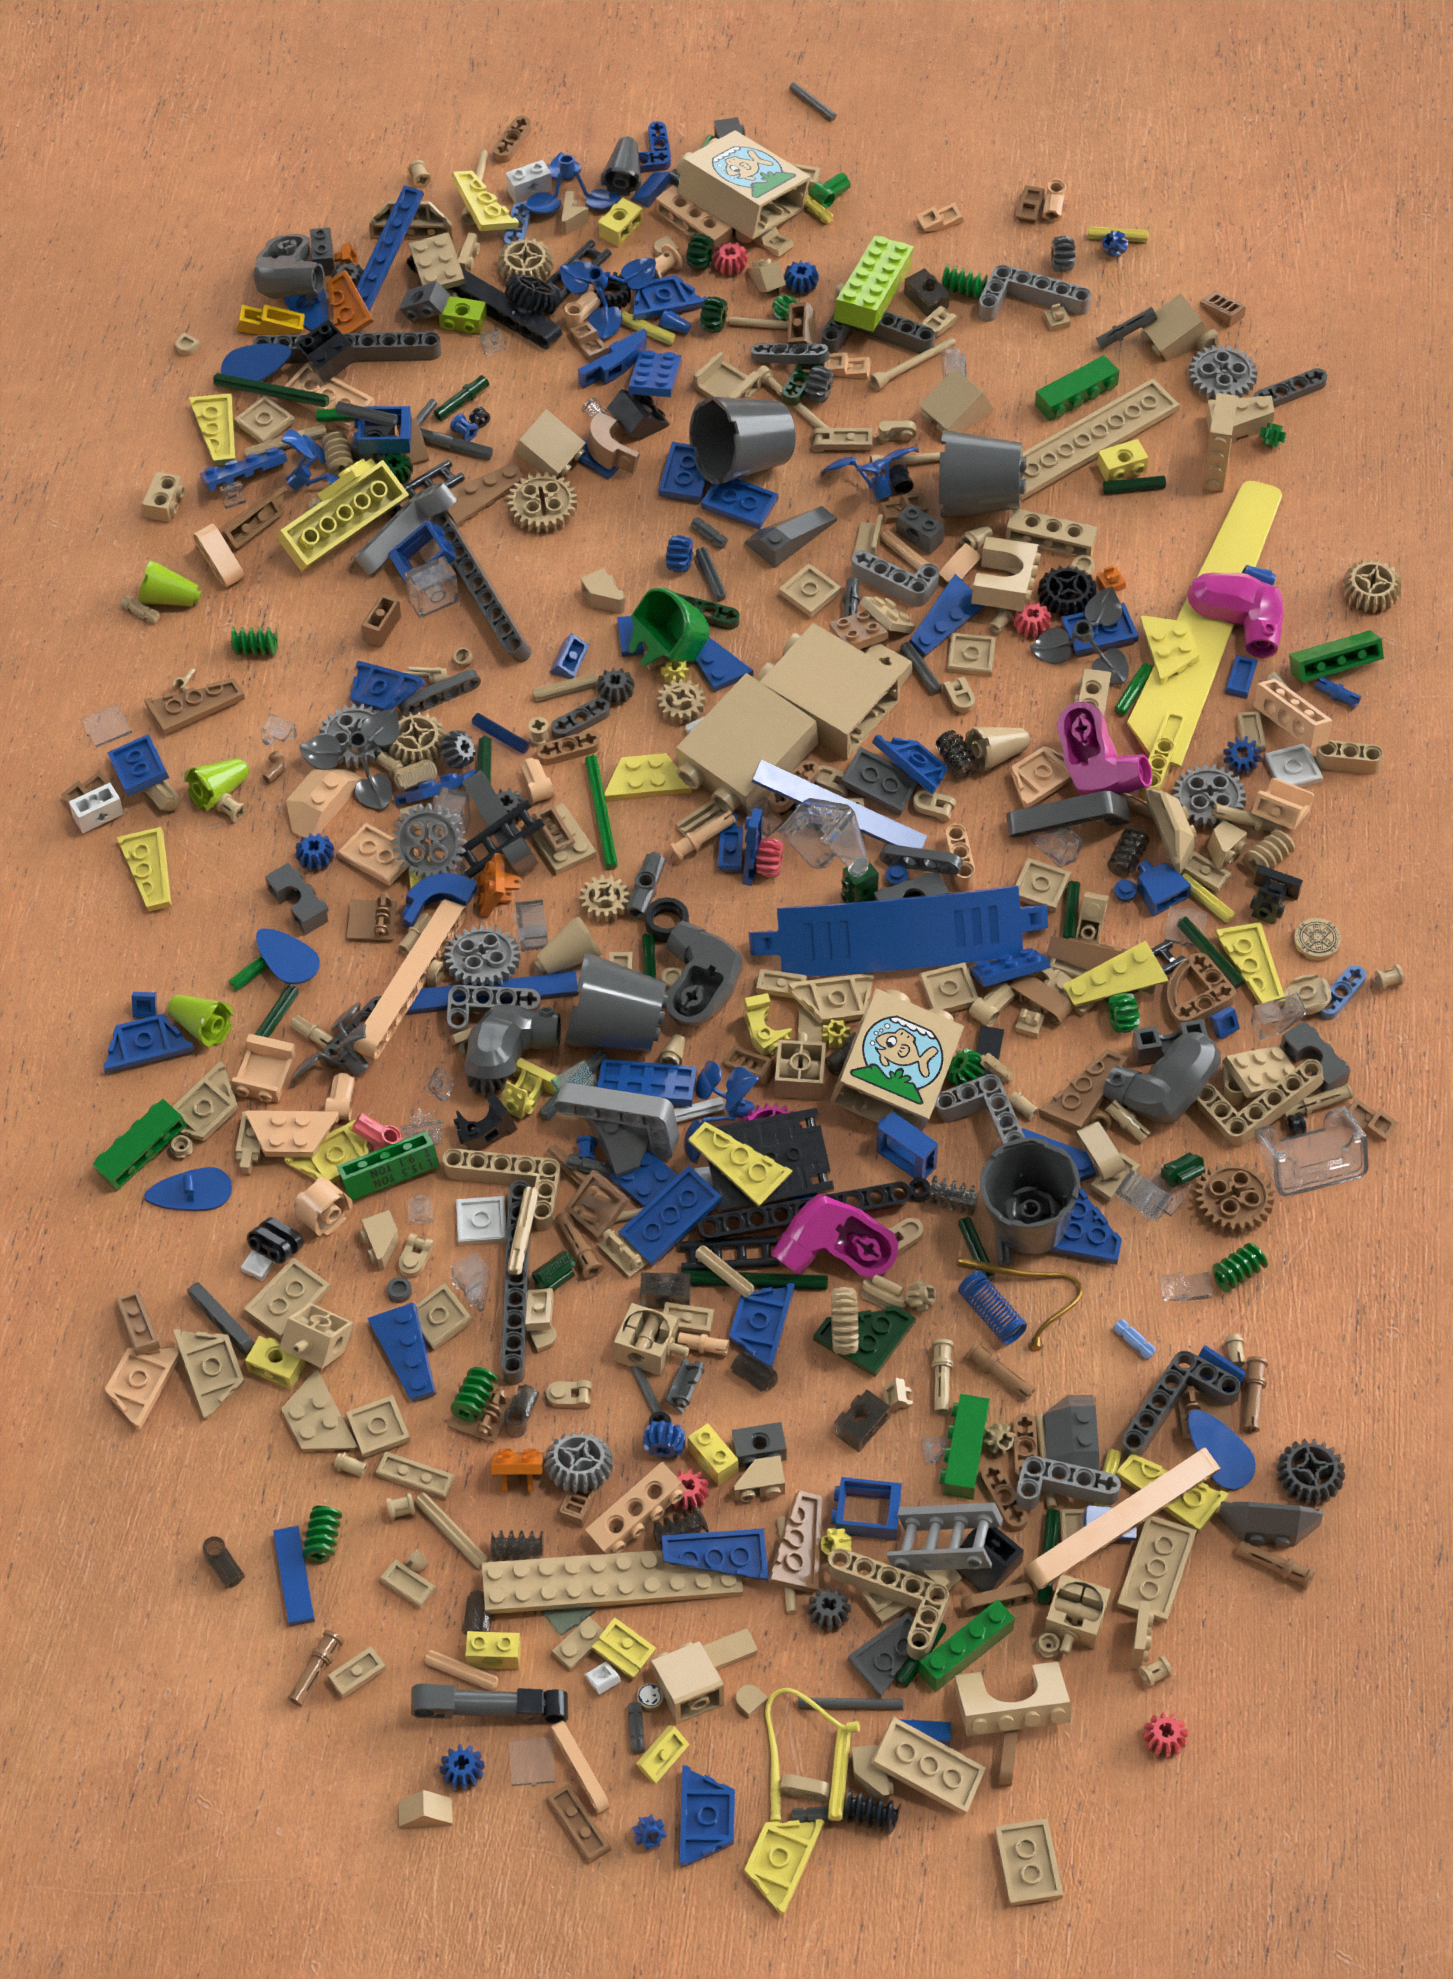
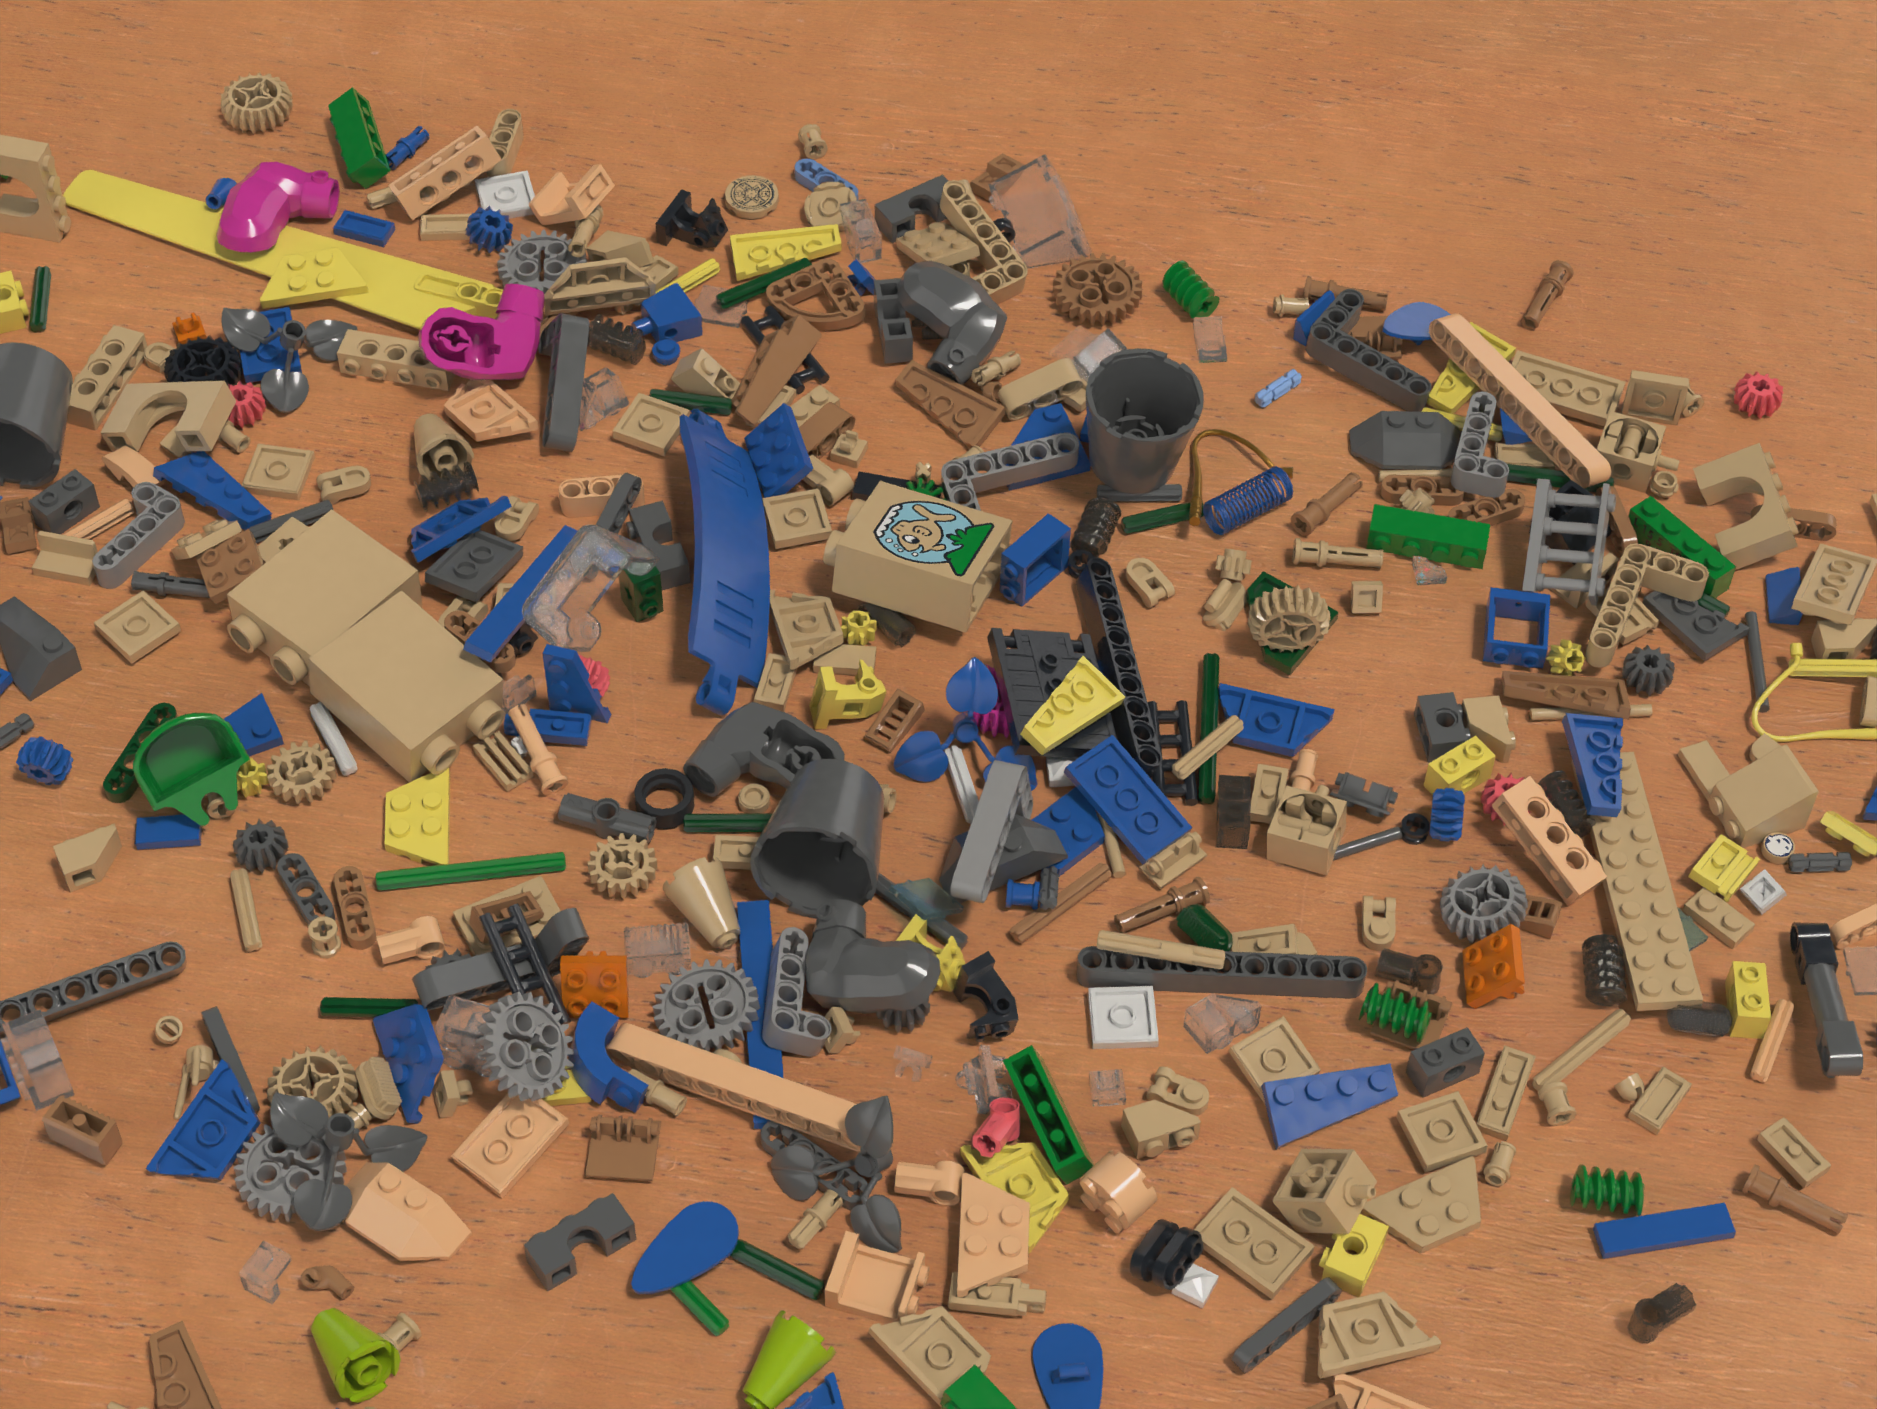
camera: 90 degrees left, 5 degrees down
(181, 1141) = (1007, 1381): tan plate -> none
(254, 641) = (79, 1309): green piece -> none
(314, 851) = (497, 1219): blue gear -> none
(399, 1290) = (1230, 1112): dark grey tile -> none
(435, 1429) = (1445, 1062): none -> dark grey brick
(457, 749) = (346, 1030): dark grey gear -> none
(500, 733) = (314, 988): clear blue axle -> none
(514, 1166) = (1053, 974): tan beam -> none
(569, 657) = (190, 906): slope -> none
(597, 1204) = (1109, 877): medium nougat plate -> none
(652, 1079) = (922, 824): blue plate -> none
(711, 574) = (89, 733): dark grey axle -> none
(754, 1371) = (1342, 728): clear smoke piece -> none
(800, 1069) = (911, 661): tan piece -> none
(840, 1232) = (1158, 633): dark pink piece -> none
(859, 1433) = (1401, 628): clear smoke brick -> none
(976, 537) = (91, 452): tan cone -> none
(1123, 1012) = (850, 356): green gear -> none
(1124, 973) = (805, 347): light yellow wing -> none
(1133, 689) = (362, 320): green axle -> none
(1183, 1169) = (1064, 325): dark green piece -> none
(1269, 851) = (631, 217): tan piece -> none
(1269, 1522) = (1503, 290): dark grey wedge -> none
(1319, 1462) = (1437, 258): dark grey gear -> none

